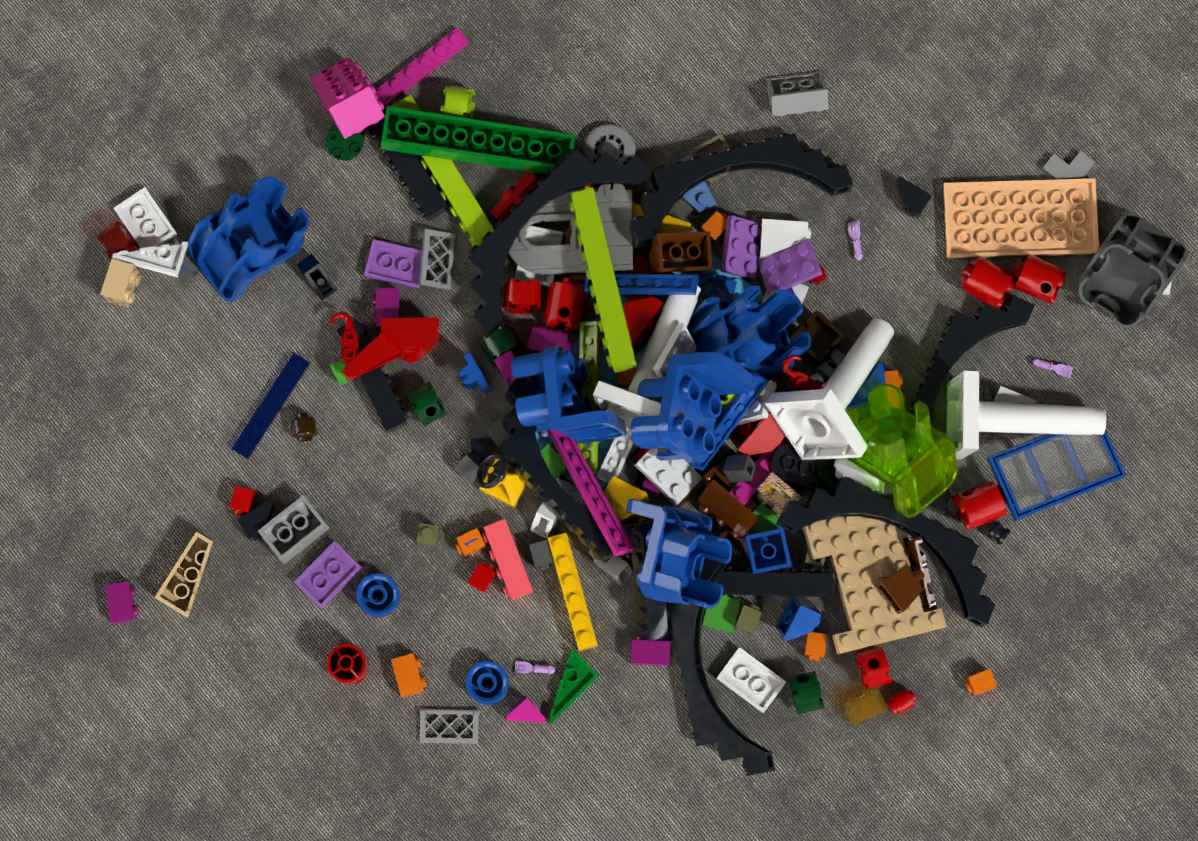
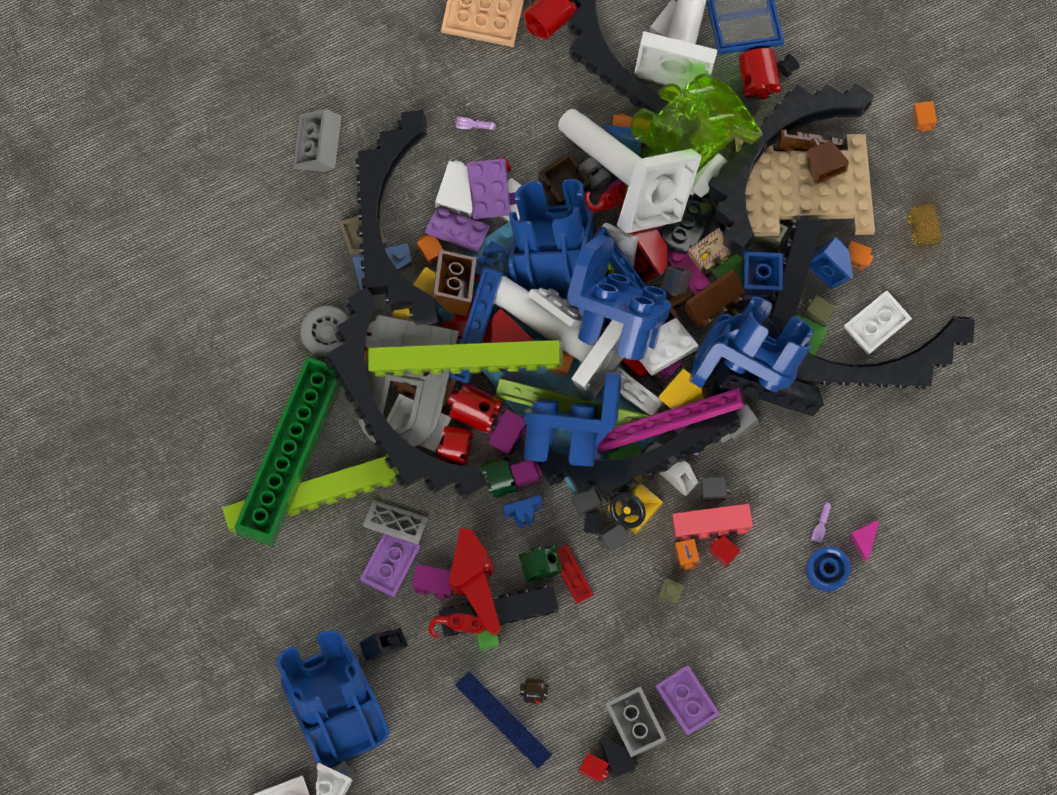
camera: 85 degrees left, 5 degrees down
(343, 148) = (252, 583): dark green brick -> none
(343, 656) = (783, 697): red cylinder -> none
(348, 97) = (213, 565): dark pink brick -> none
(390, 598) = (724, 643): blue wheel -> none
(408, 675) = (804, 644): orange brick -> none
(414, 177) = (301, 527): black brick -> none
(421, 67) = (202, 514): dark pink plate -> none
(426, 439) = (573, 576): none -> red tile
(458, 102) = (244, 462): lime brick -> none
(459, 712) = (875, 611): light grey window -> none
(513, 196) = (352, 432): red piece -> none
(572, 592) = (759, 467): yellow brick -> none
(575, 681) = (844, 487): green wing -> none
(650, 653) = (832, 411): magenta brick -> none
(806, 692) = (902, 273): dark green brick -> none
(875, 658) = (891, 198): red brick -> none
(902, 701) = (927, 190): red brick -> none
(911, 197) = (447, 62): black slope -> none

